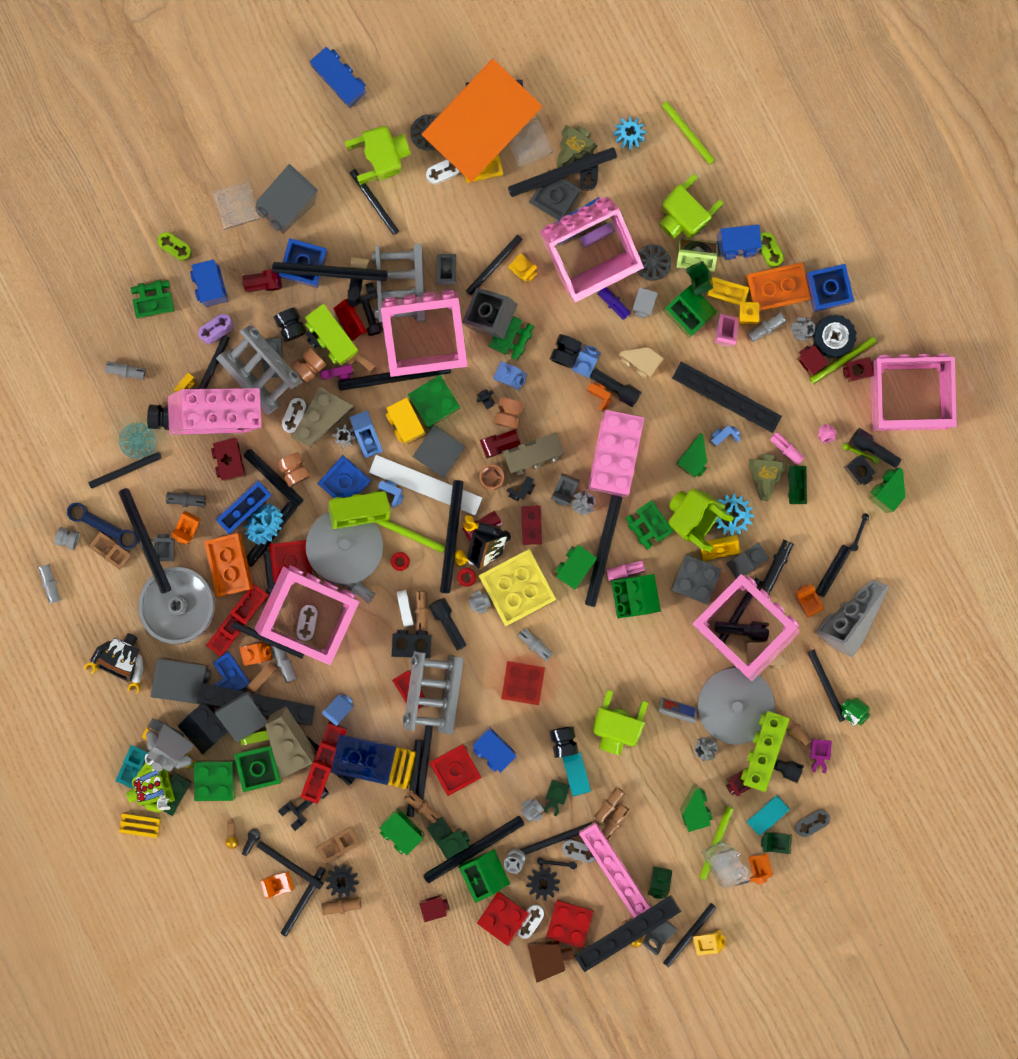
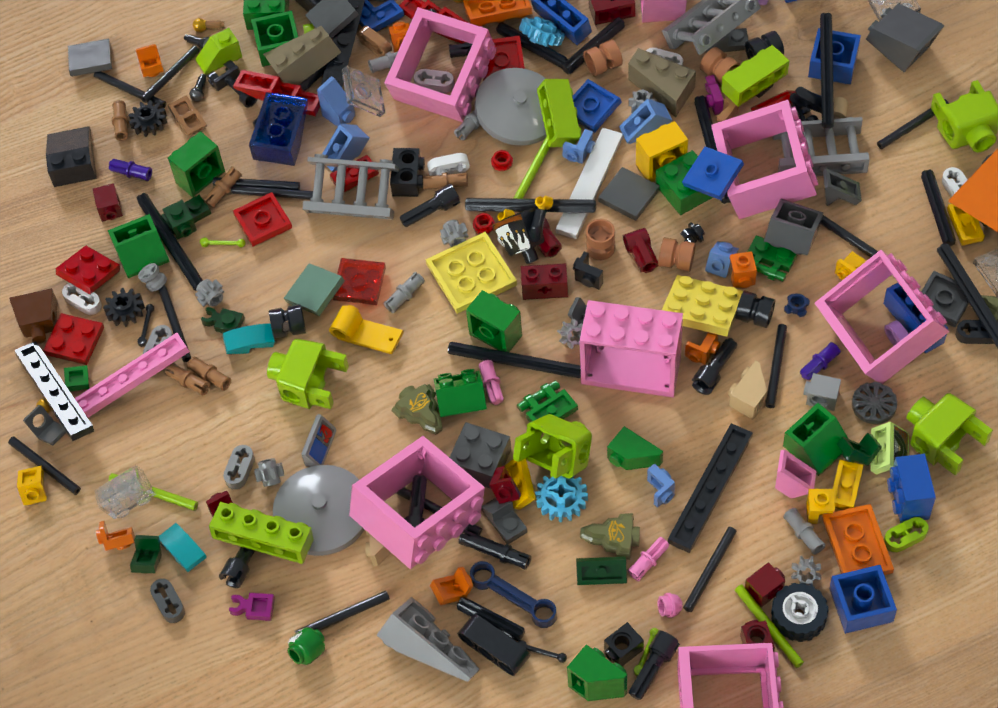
camera: 100 degrees right, 30 degrees down
(262, 281) = (809, 23): dark red piece -> none
(267, 942) = (89, 57): none -> tile
(268, 822) = (218, 50): none -> lime slope
(310, 838) = (197, 93): none -> piece
(324, 685) = (363, 91): none -> clear plate
(376, 948) = (70, 156): none -> black slope
(381, 701) = (346, 143): none -> medium blue slope
(395, 892) = (130, 169): none -> dark purple axle
(397, 783) = (268, 169): yellow tile -> none
(443, 378) = (713, 173): none -> blue plate
(464, 190) = (938, 207): none -> black axle
(474, 819) = (205, 242): none -> lime hinge
(494, 750) = (282, 248): blue brick -> none
(527, 358) = (743, 270): none -> orange bracket
(532, 720) = (314, 289): none -> sand green tile
(533, 454) = (627, 274): dark tan wedge -> none
(553, 318) = (797, 299): none -> dark blue plate
(561, 395) = (703, 304): none -> light yellow plate
(573, 675) = (352, 328): none -> yellow door
(586, 360) = (748, 333): medium blue bracket -> none
(611, 916) = (77, 378): none -> green plate
(614, 338) = (776, 366): none -> black piece
(649, 628) = (419, 407): none -> olive rock
(660, 883) = (111, 428): dark green bracket -> none
(693, 810) = (195, 456): green slope -> none
(697, 769) = (243, 468): none -> light grey beam
(731, 561) = (504, 486): none -> dark red bracket
(794, 401) = (709, 569): none -> black piece
(795, 731) = (285, 575): medium nougat pin -> none
(813, 553) = (513, 594): none -> dark blue piece
(856, 568) = (493, 644): none -> black beam

